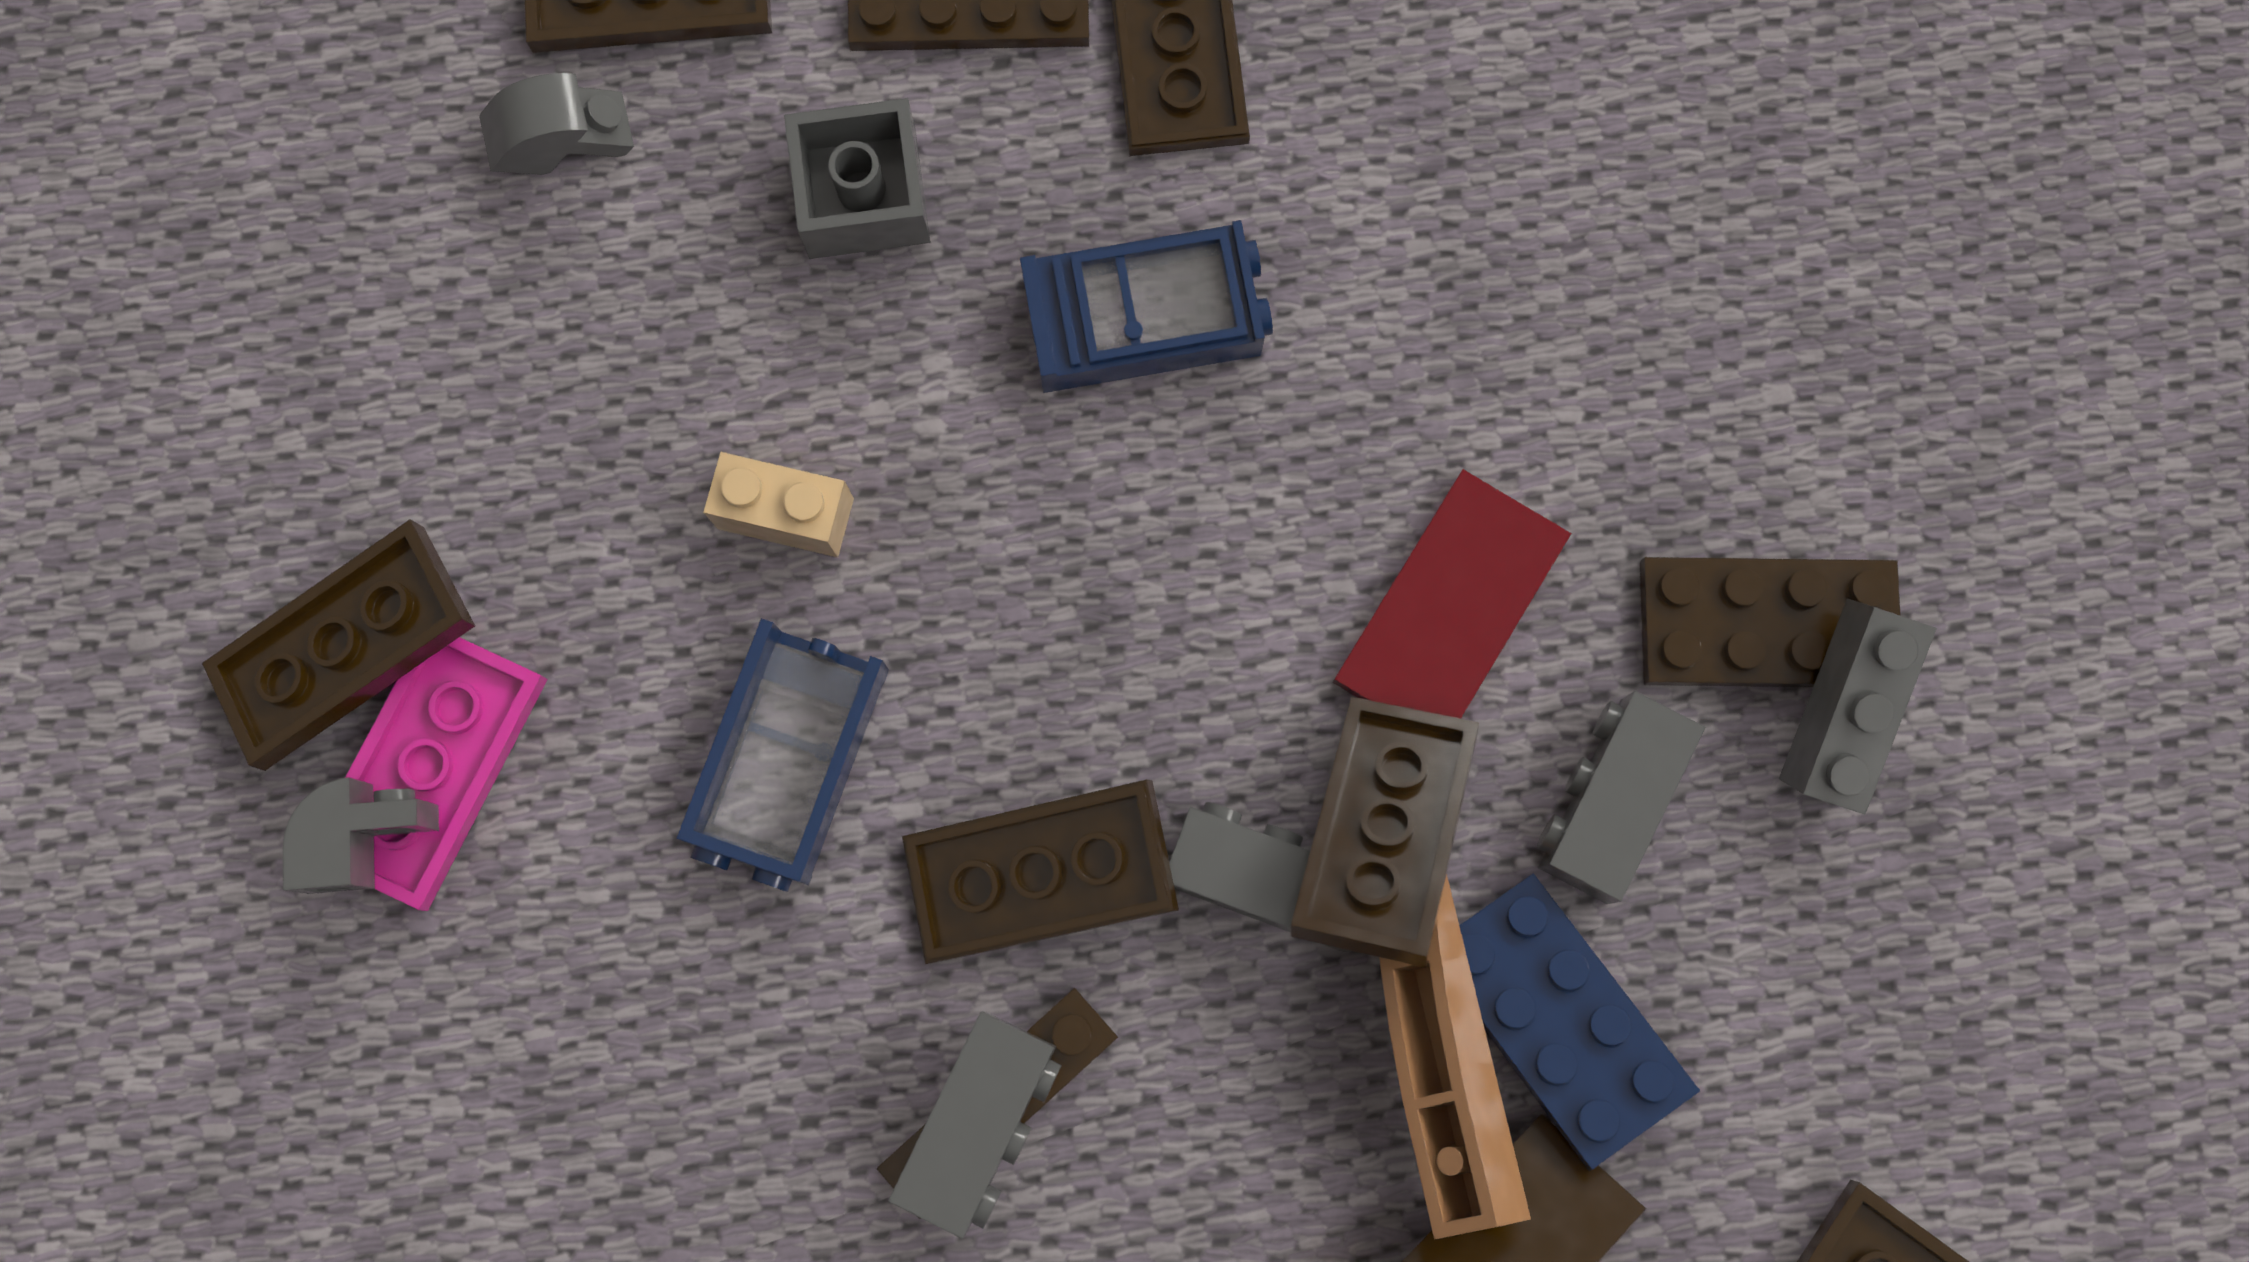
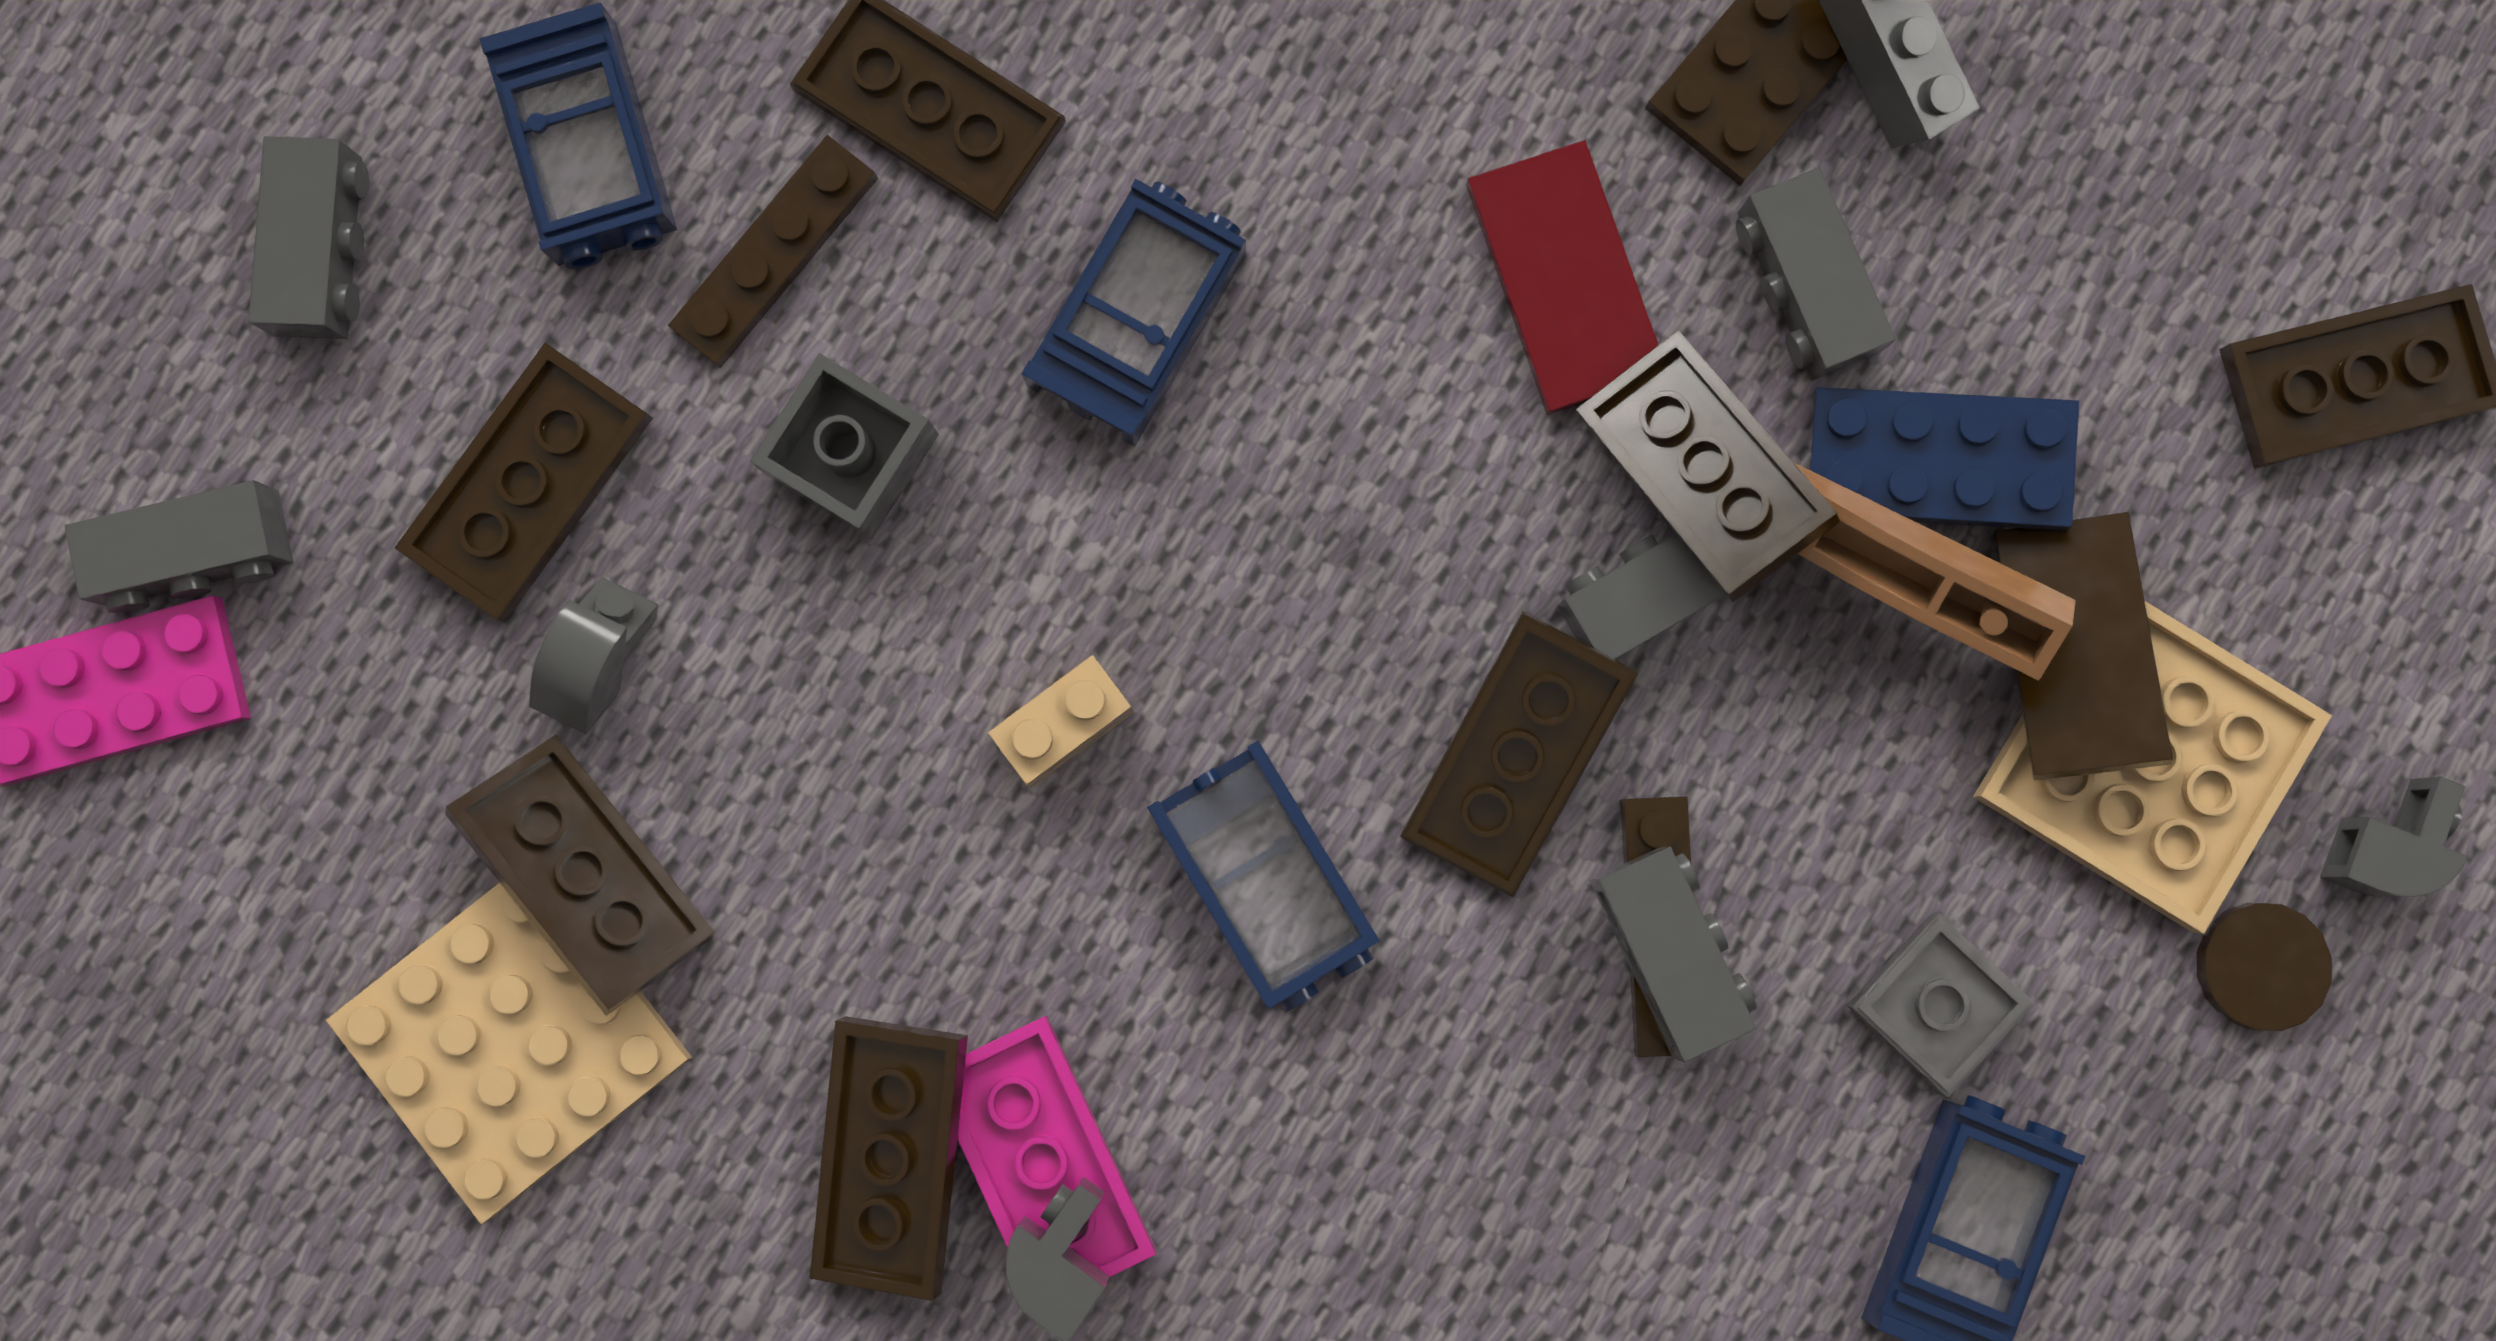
camera: 50 degrees left, 5 degrees up
(220, 304) = (501, 1052): none -> tan plate
(380, 250) = (580, 874): none -> dark brown plate

